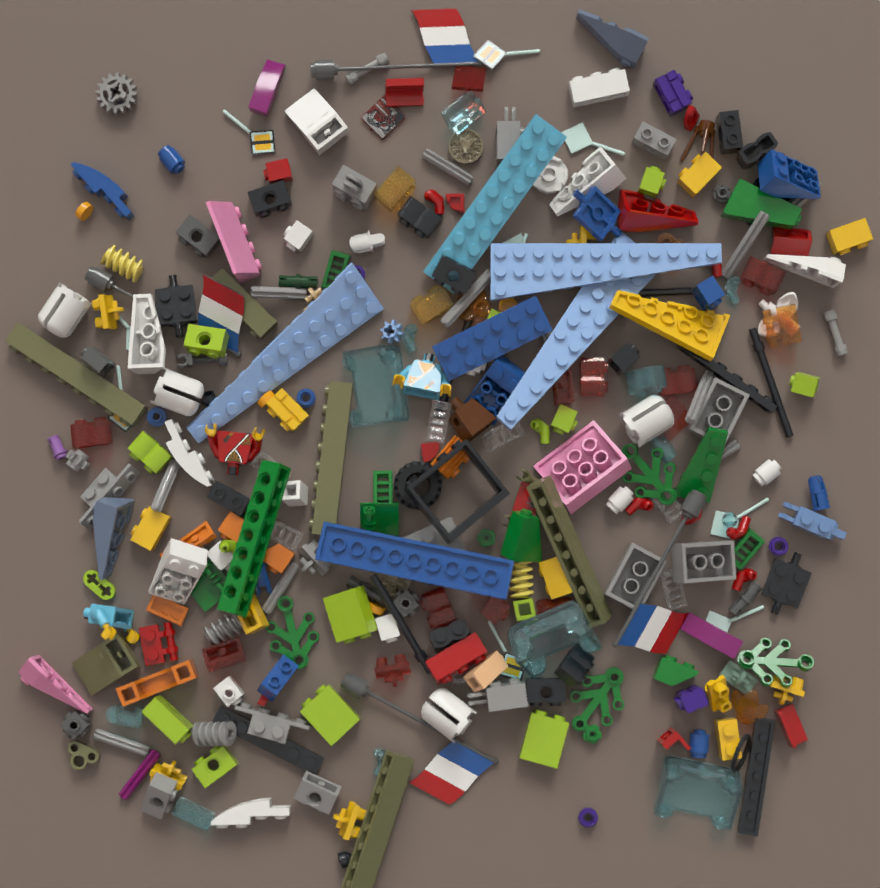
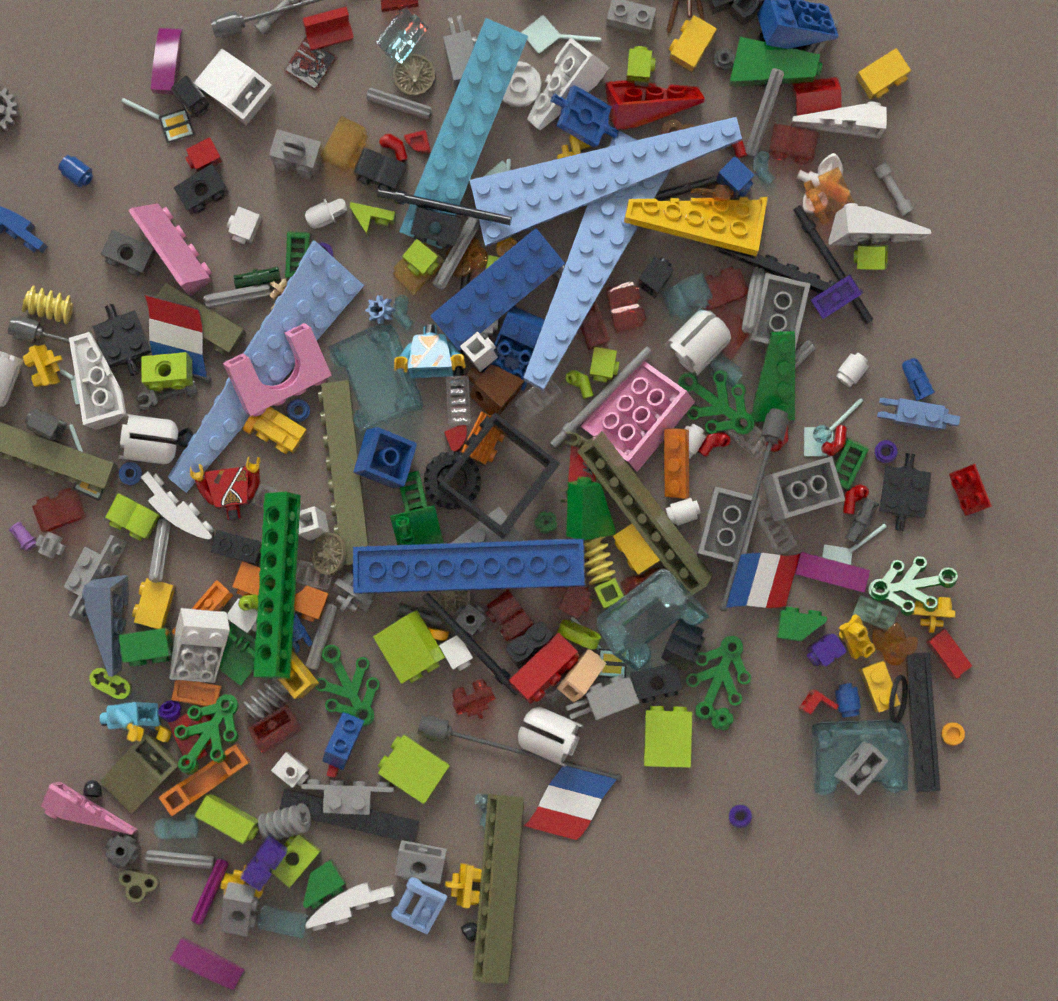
camera: 10 degrees left, 0 degrees up
(64, 667) = (92, 789): none -> black hinge
(122, 833) = (206, 963): none -> magenta slope
(132, 561) = (146, 645): none -> green piece
(142, 619) = (170, 711): none -> dark purple plate
(171, 644) = (209, 731): none -> green plant
(194, 759) = (269, 856): none -> dark purple piece
(233, 789) = (323, 881): none -> green slope
(279, 121) = (190, 97): none -> black brick
(302, 521) = (328, 553): none -> dark tan wheel
(312, 833) = (425, 910): none -> light blue plate
(322, 367) = (308, 370): none -> bright pink arch
(367, 454) = (385, 457): none -> blue brick
(399, 251) = (365, 215): none -> lime slope
(432, 244) = (401, 197): none -> black bar
(435, 299) = (420, 259): none -> lime brick
(465, 385) = (479, 351): none -> white brick
(491, 636) = (579, 634): none -> lime beam
(554, 447) = (601, 397): none -> light grey bar
(600, 556) = (683, 511): none -> white brick
(604, 515) = (676, 463): none -> orange plate
(693, 302) = (721, 192): none -> clear orange plate
(697, 802) = (861, 768): none -> light grey brick
(768, 410) = (836, 296): none -> dark purple panel
(778, 791) = (952, 733): none -> light orange tile
(805, 355) = (863, 223): none -> white wedge
(840, 595) = (970, 490): none -> red hinge

